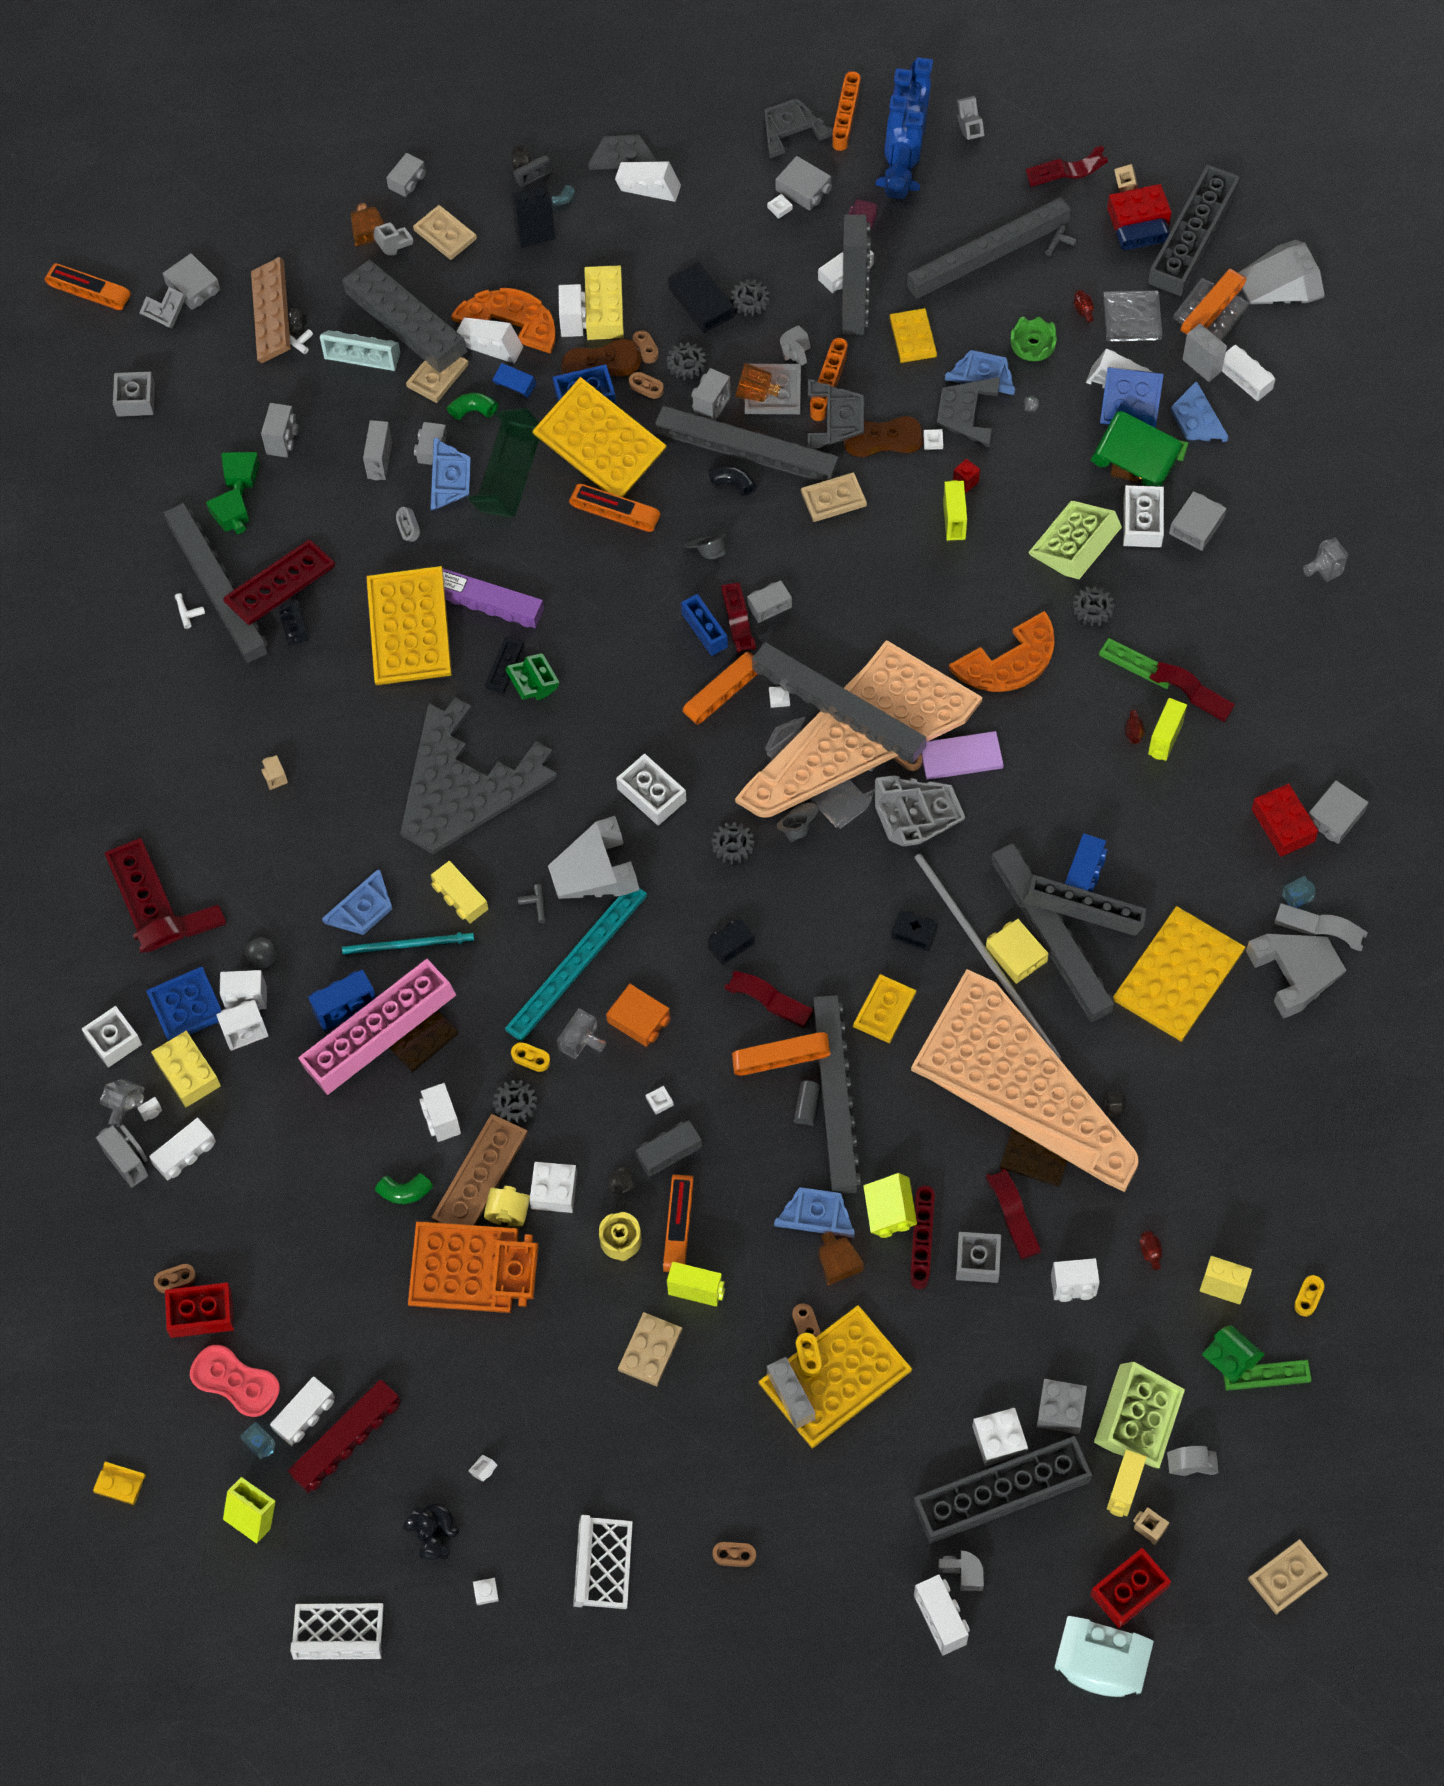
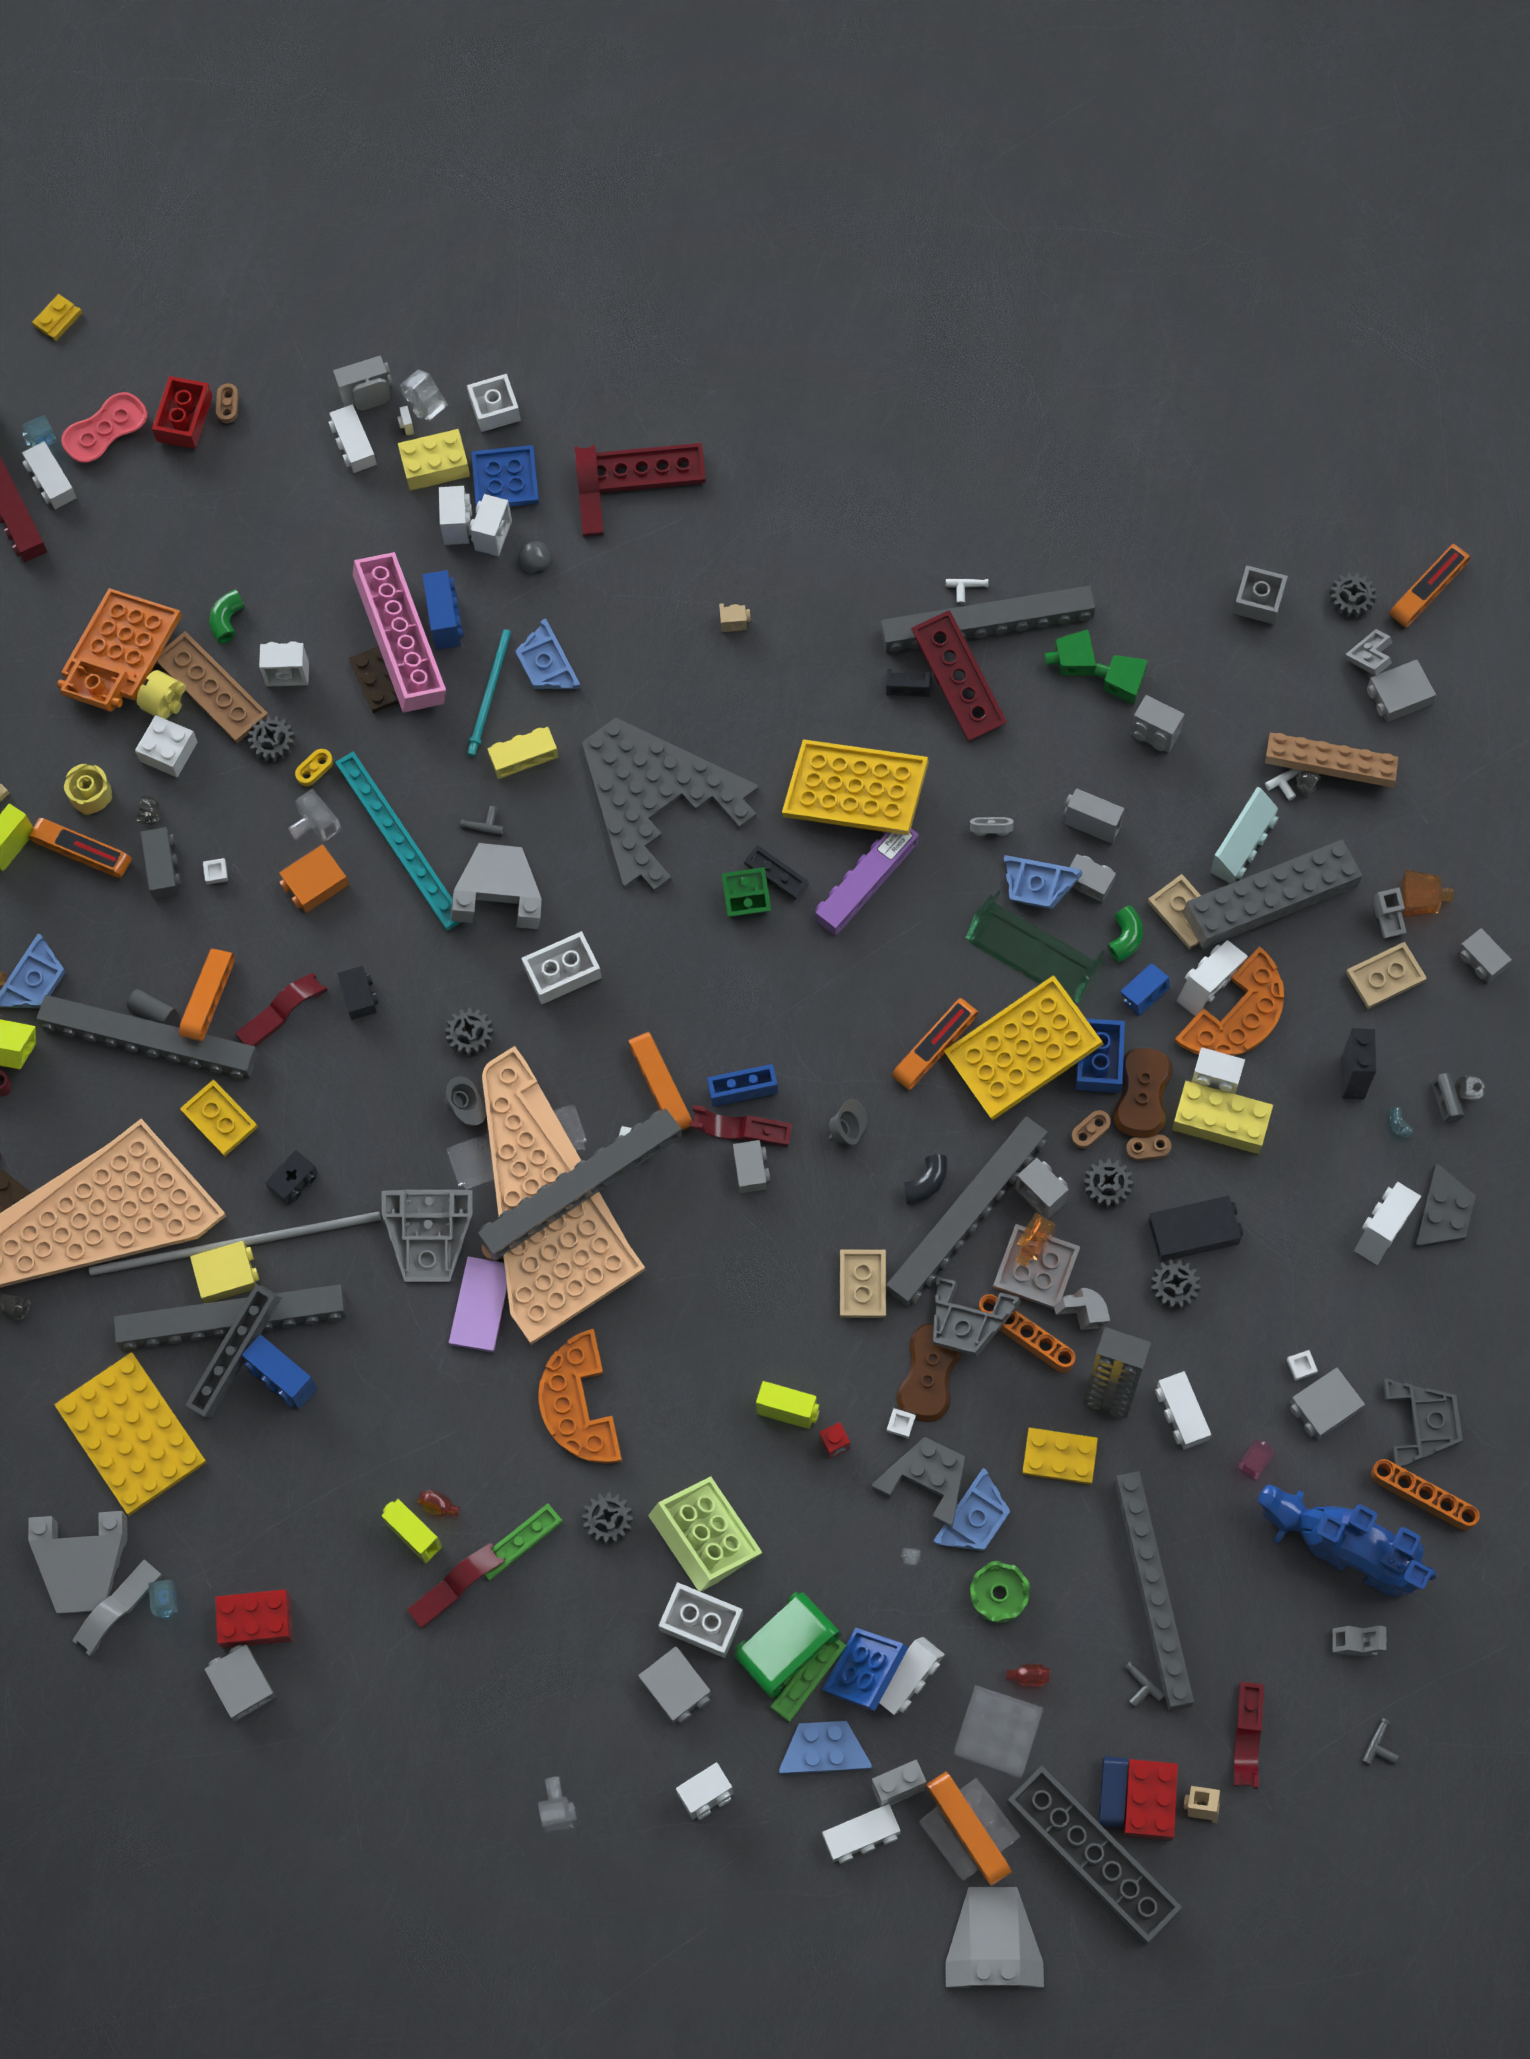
camera: 110 degrees right, 5 degrees up
(112, 335) = (1342, 598): none -> dark grey gear
(1039, 98) = (1375, 1748): none -> dark grey piece
(1267, 471) = (705, 1792): none -> white brick

